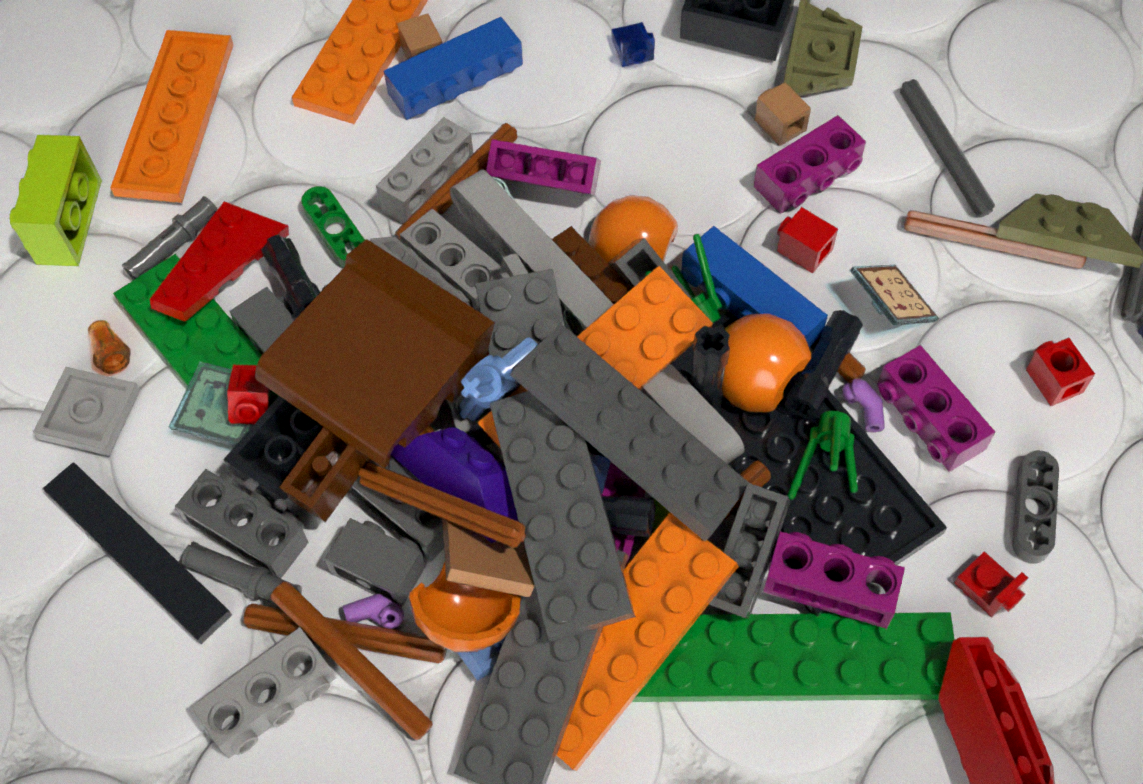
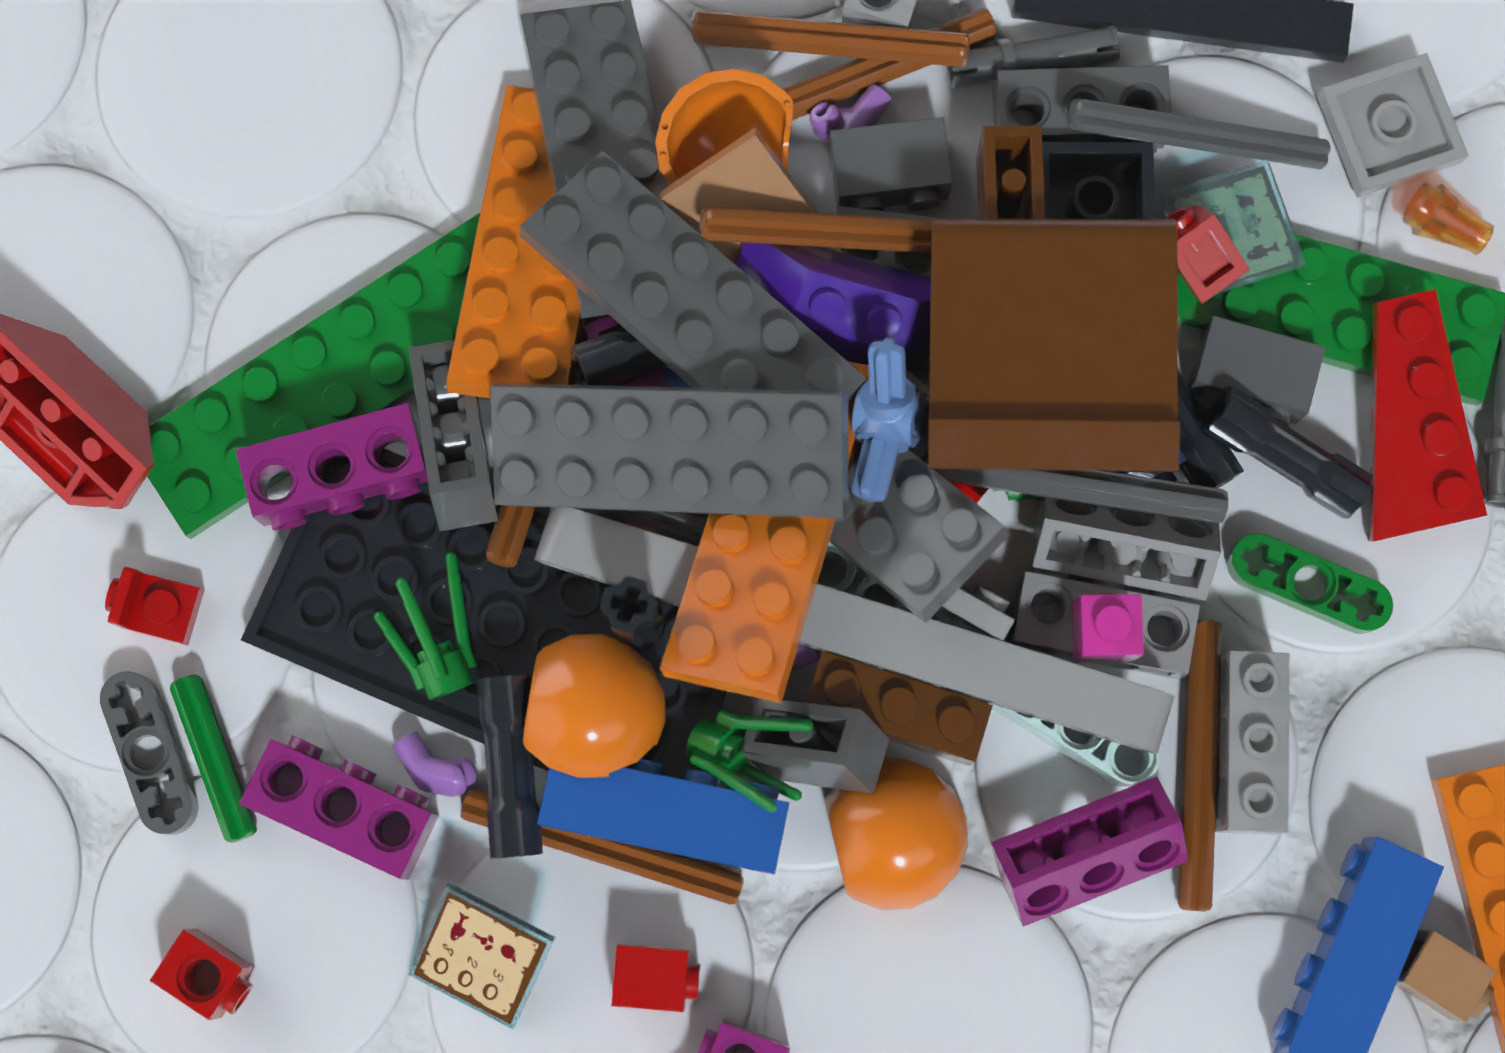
camera: 145 degrees right, 20 degrees up
(195, 457) = (1197, 133): none -> dark grey axle
(457, 236) = (1107, 628): none -> dark pink brick
(997, 483) = (212, 758): none -> green axle

